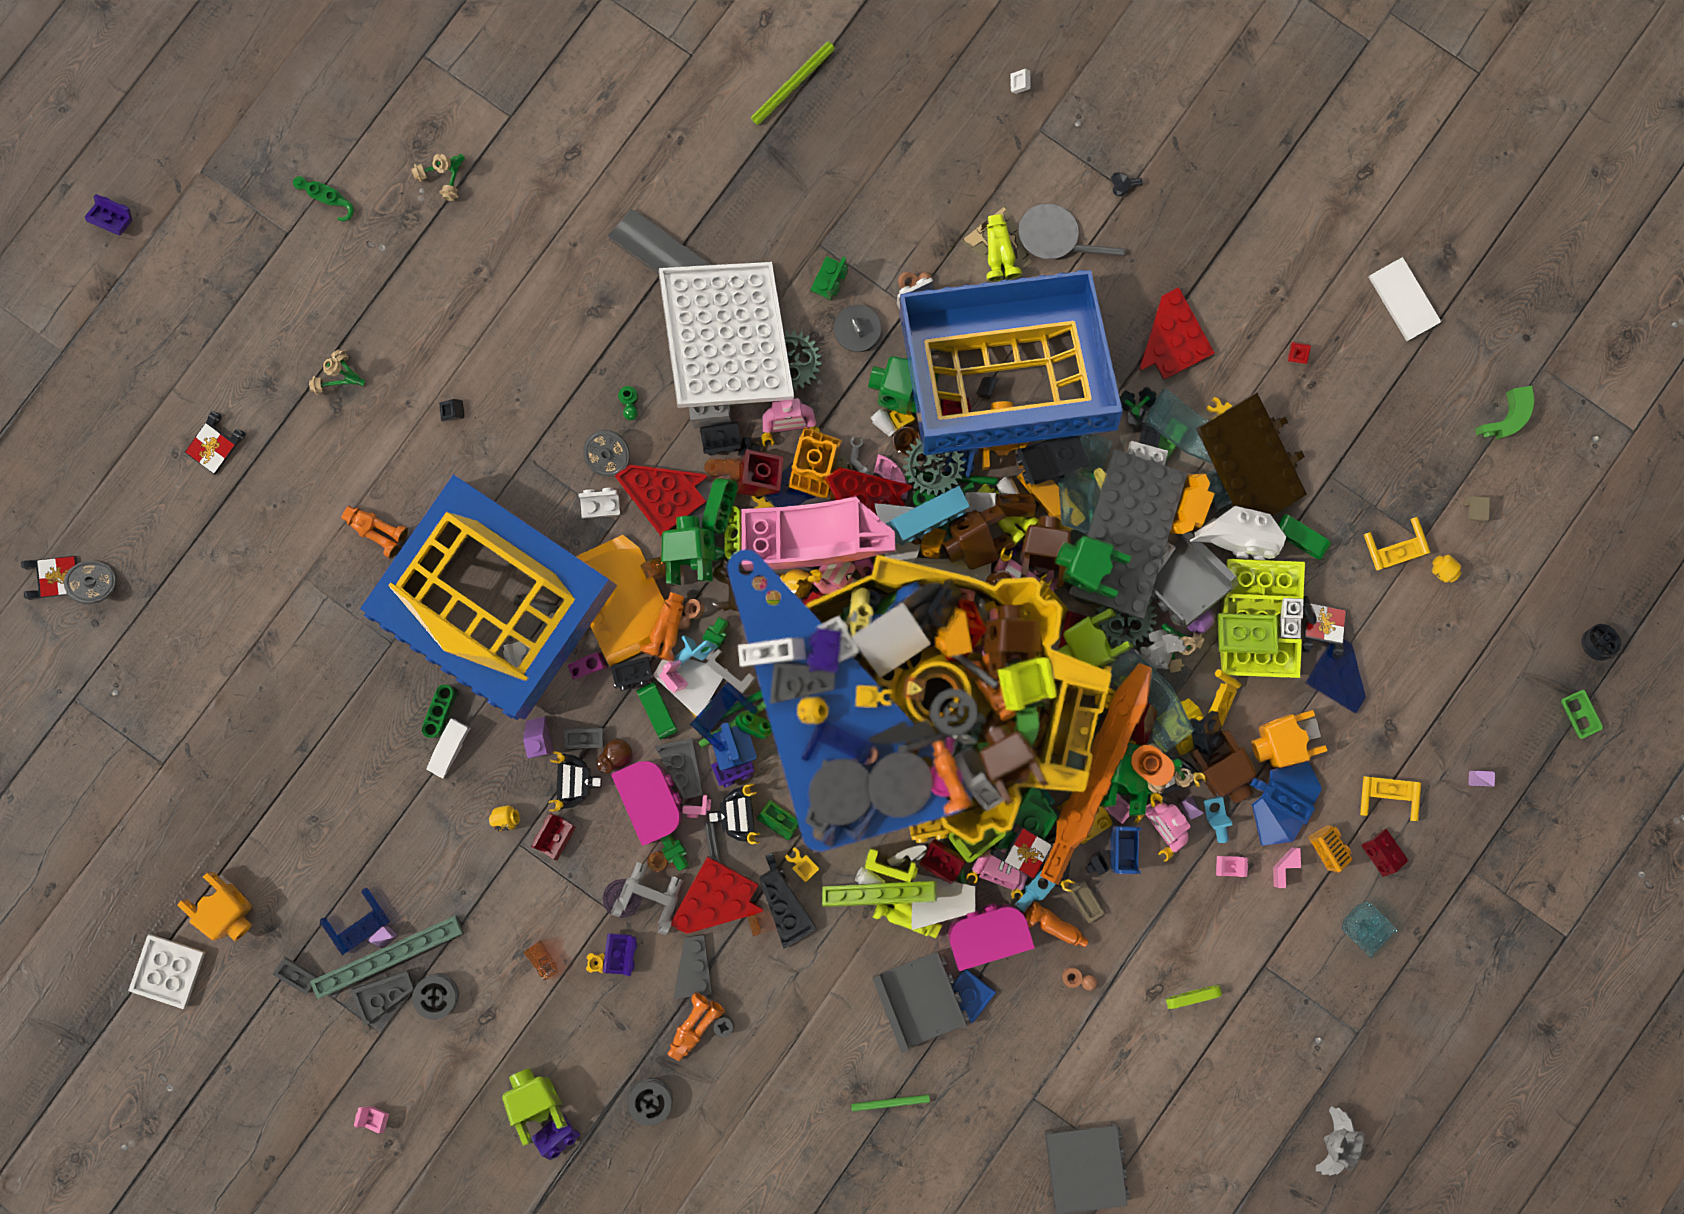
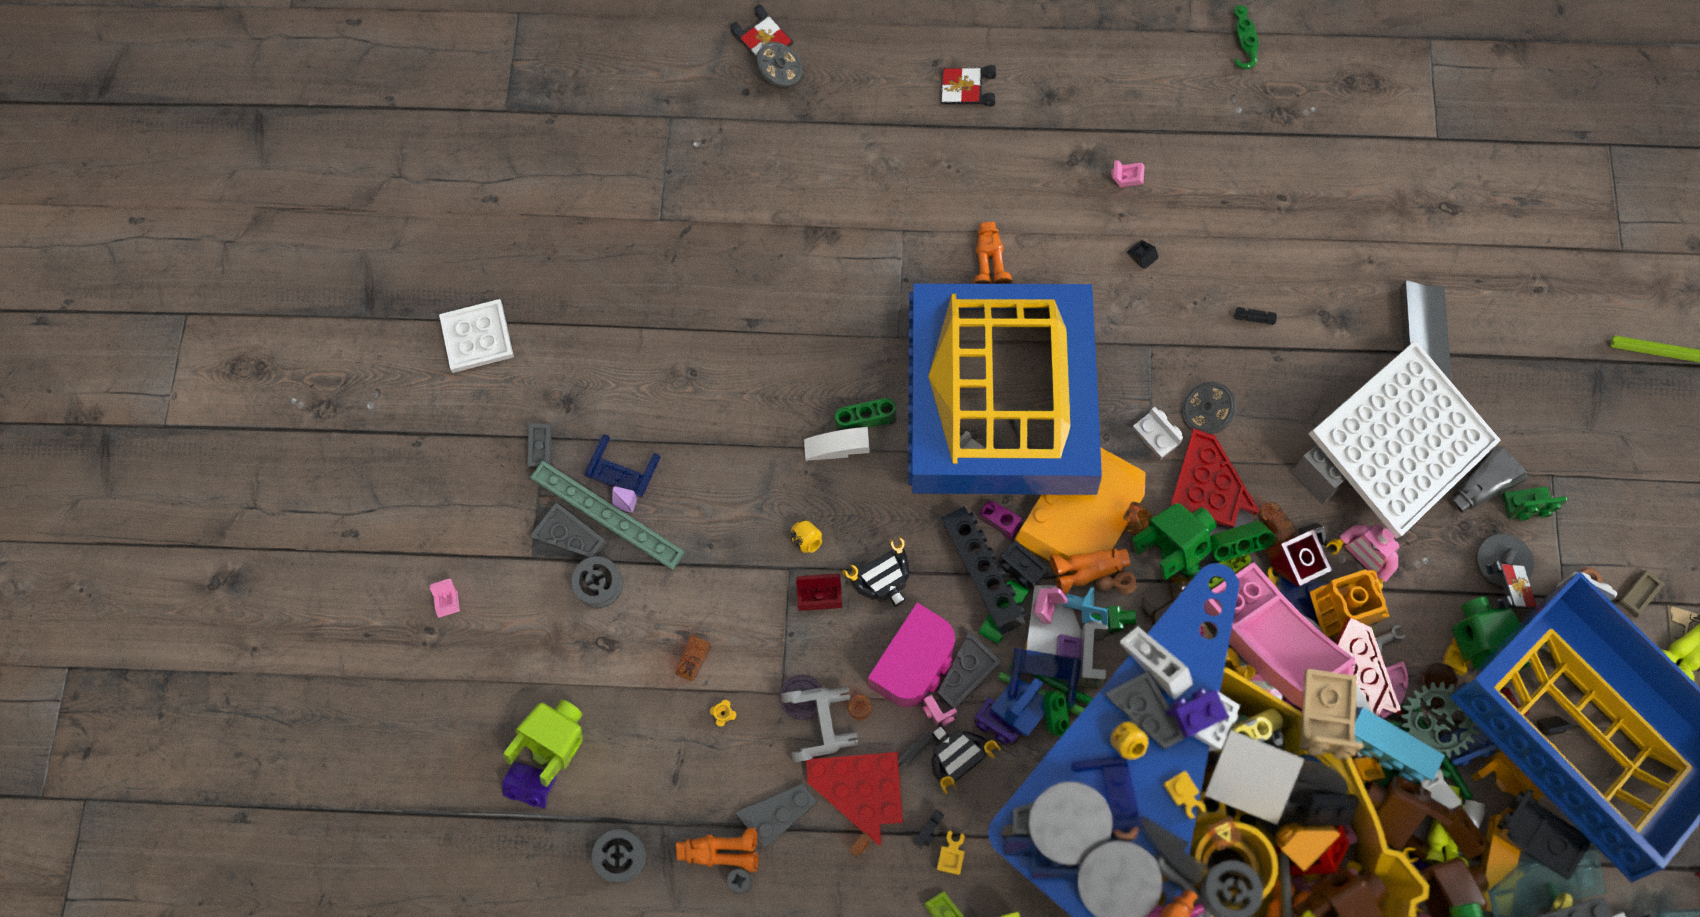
camera: 60 degrees right, 15 degrees down
(220, 913) = (558, 344): light orange piece -> none
(333, 367) = (1109, 128): plant -> none
(378, 374) = (1128, 174): none -> bright pink bracket
(442, 163) = (1353, 105): tan plant -> none
(537, 738) = (900, 518): medium lavender slope -> none
(558, 363) = (1255, 316): none -> black axle
(569, 703) = (1004, 619): none -> black brick
(583, 738) = (930, 560): dark grey plate -> none
(614, 755) = (935, 598): reddish brown hair -> none
(619, 954) = (746, 729): dark purple bracket -> none
(629, 412) = (1262, 405): green plate -> none
(674, 851) = (880, 717): green axle -> none
(713, 682) = (1068, 646): none -> medium lavender tile
(720, 438) = (1303, 501): black bracket -> none
(778, 820) = (979, 801): green slope -> none
(788, 913) = (894, 872): black wing -> none
(794, 294) = (1493, 476): none -> flat silver piece
(805, 370) = (1426, 536): sand green gear -> none
(880, 339) = (1516, 586): none -> flag
(883, 421) = (1438, 645): white cone -> none
(883, 559) = (1329, 714): none -> tan bracket
(941, 252) = (1641, 593): none -> dark tan tile
(1137, 414) = (1652, 902): black plant -> none

